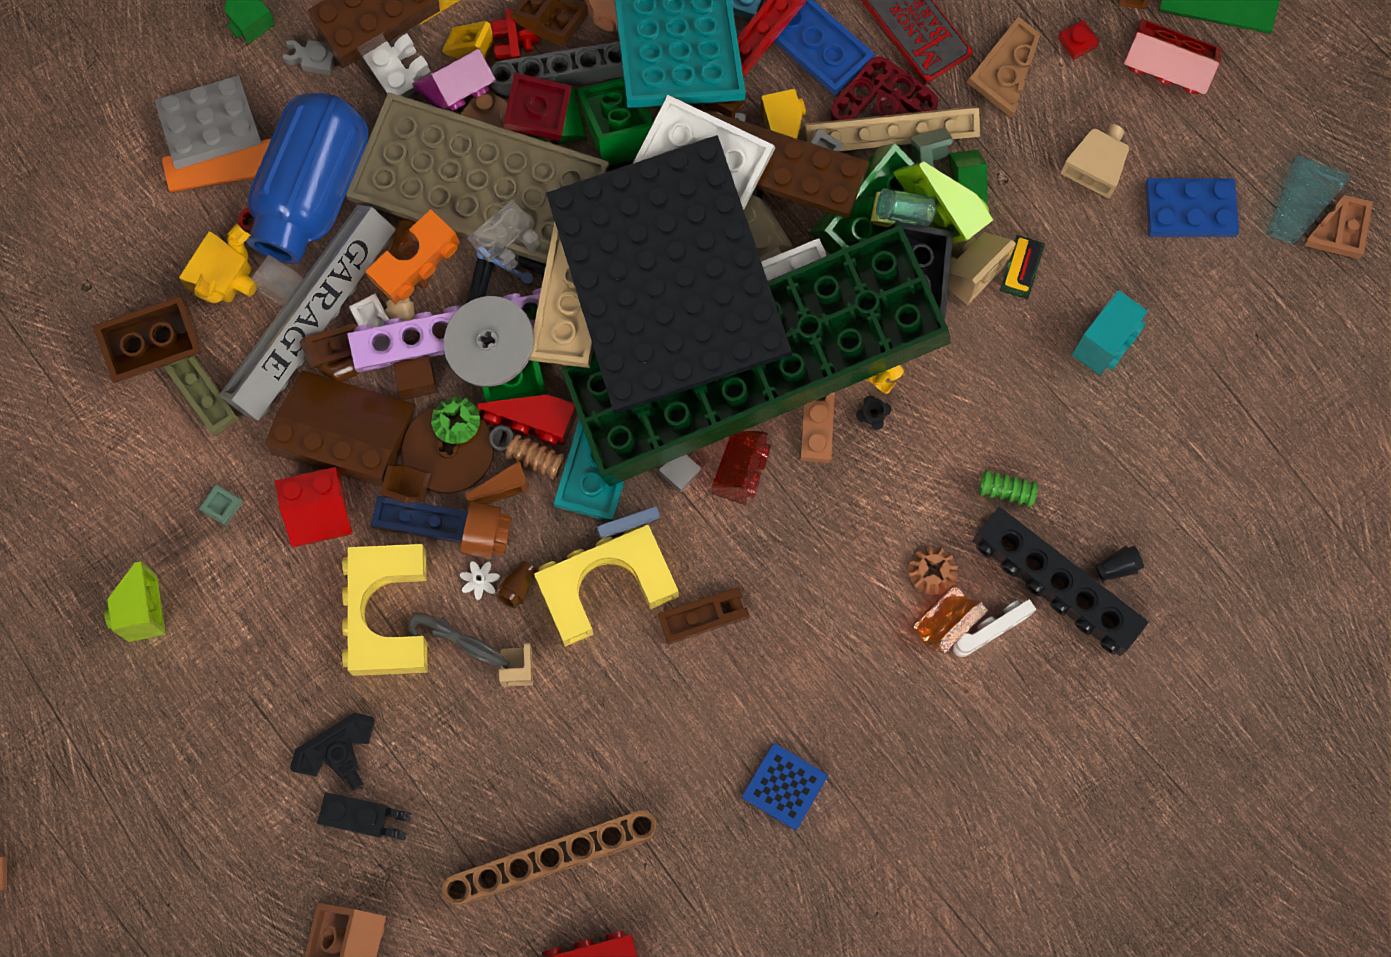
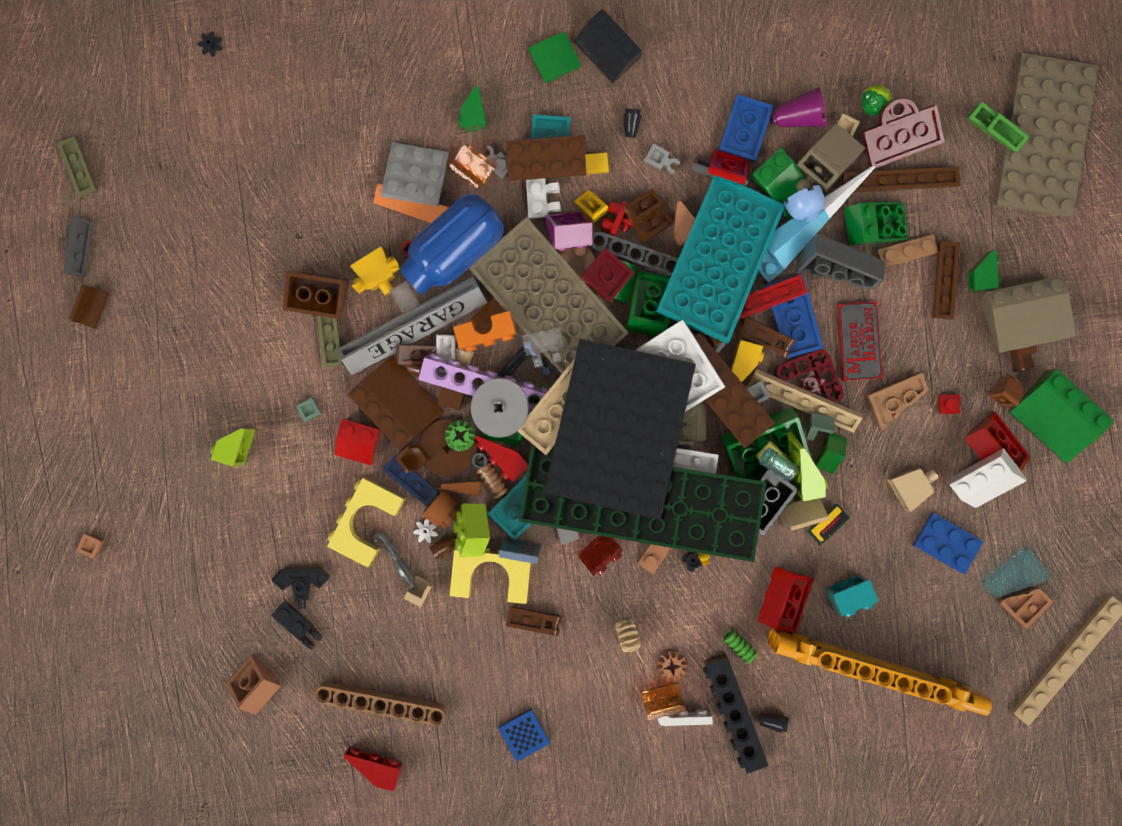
camera: 30 degrees right, 15 degrees up
(281, 74) = (472, 166): none -> clear orange bracket
(543, 527) = (471, 530): none -> lime brick
(793, 76) = (766, 337): none -> reddish brown plate
(845, 556) = (627, 635): none -> tan gear
(1028, 392) = (785, 600): none -> red slope
(1104, 431) = (879, 672): none -> light orange panel
(1187, 94) = (987, 479): none -> white slope

